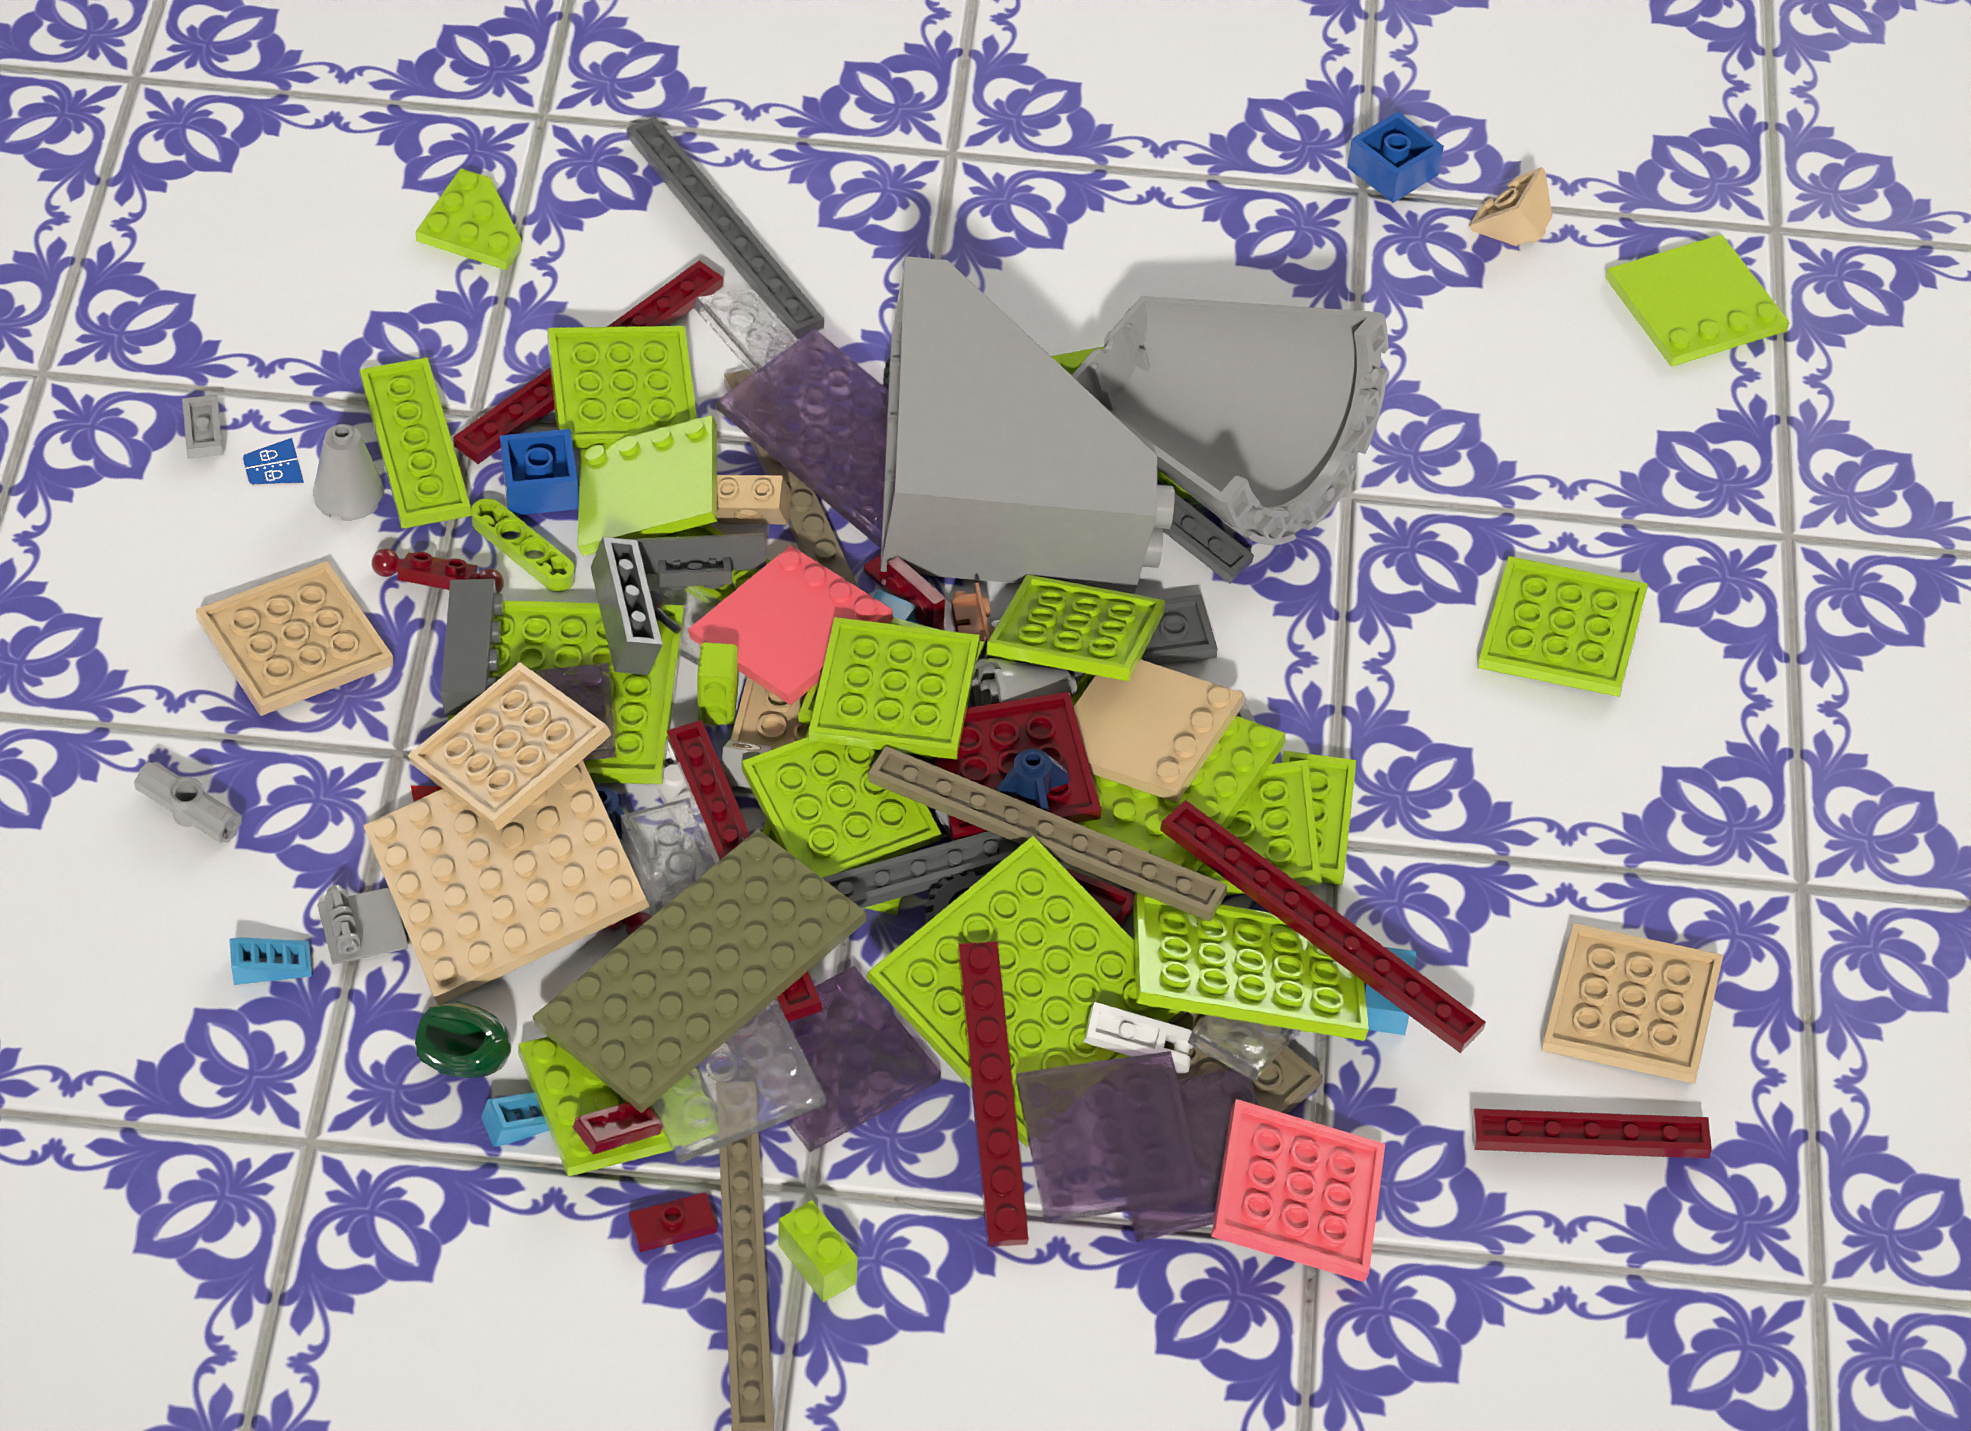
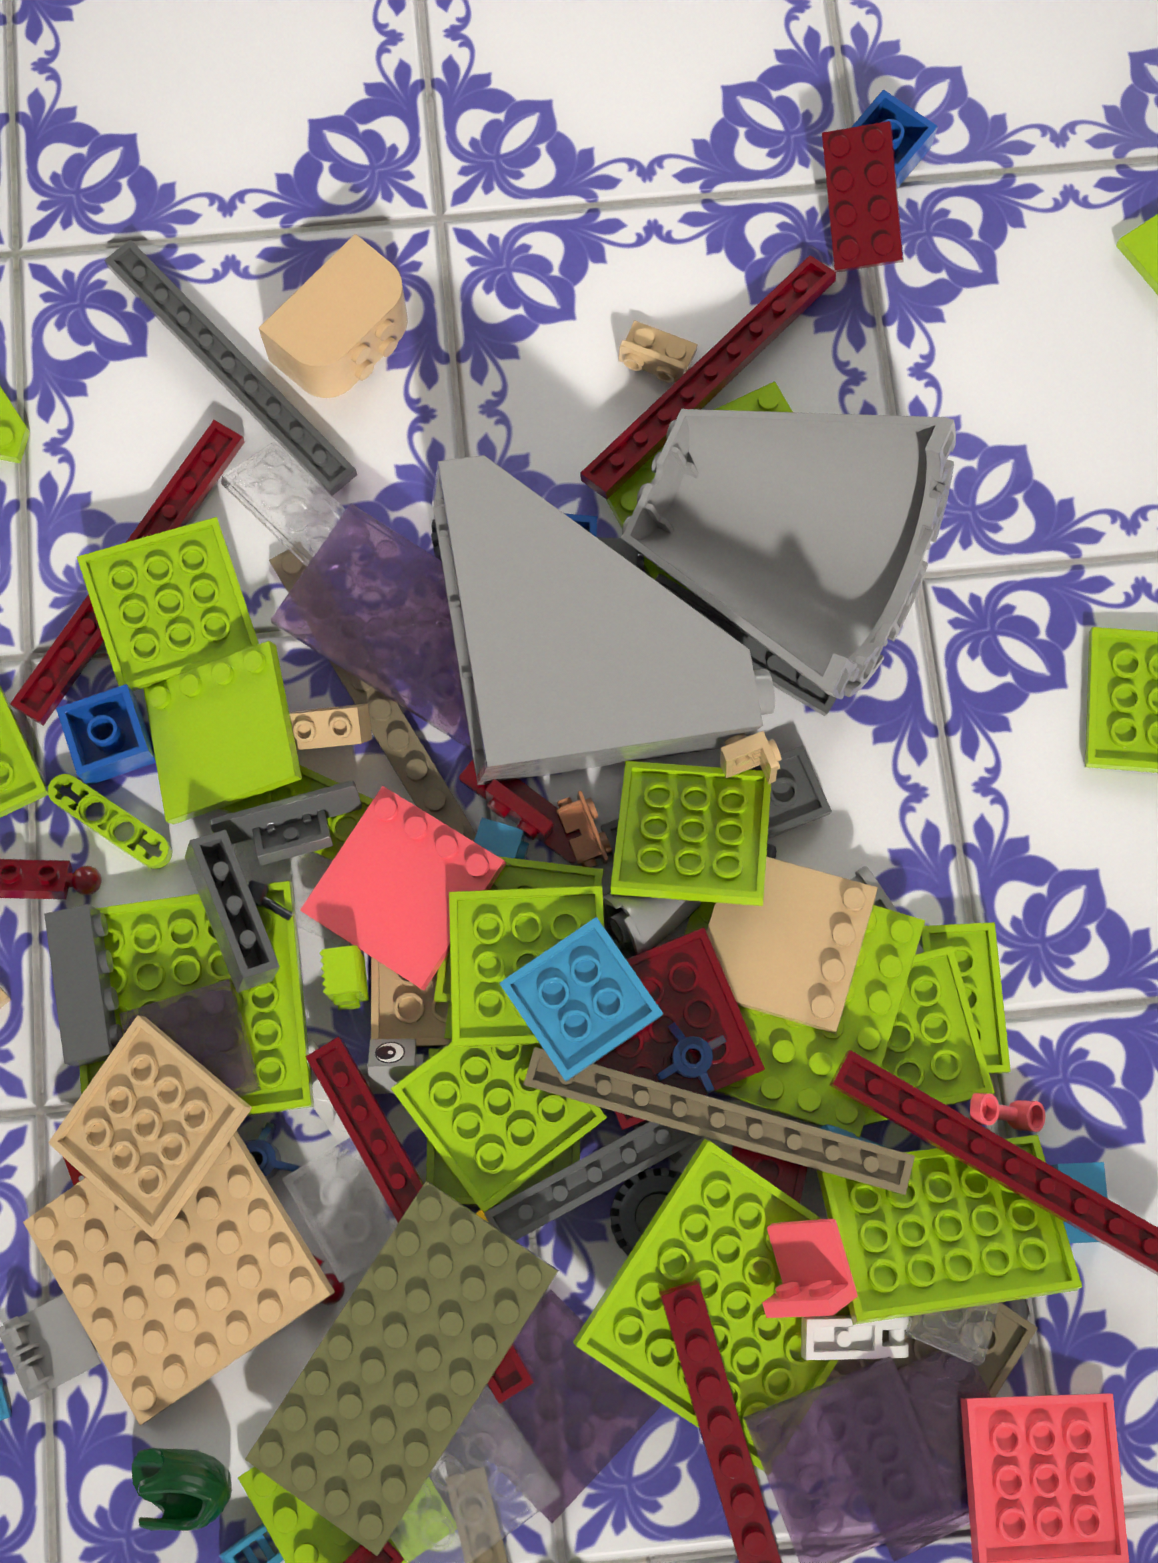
camera: 10 degrees left, 25 degrees up
(835, 204) = (338, 322): none -> tan brick
(938, 708) = (581, 999): none -> dark azure plate
(1106, 949) = (811, 1270): none -> coral bracket
(1131, 280) = (656, 352): none -> tan bracket
(1142, 567) = (748, 752): none -> tan bracket
(1213, 286) = (708, 376): none -> dark red plate
(1309, 876) = (1020, 1114): none -> coral bar
(1359, 190) = (862, 196): none -> dark red plate
(1517, 213) = (1020, 186): tan slope -> none

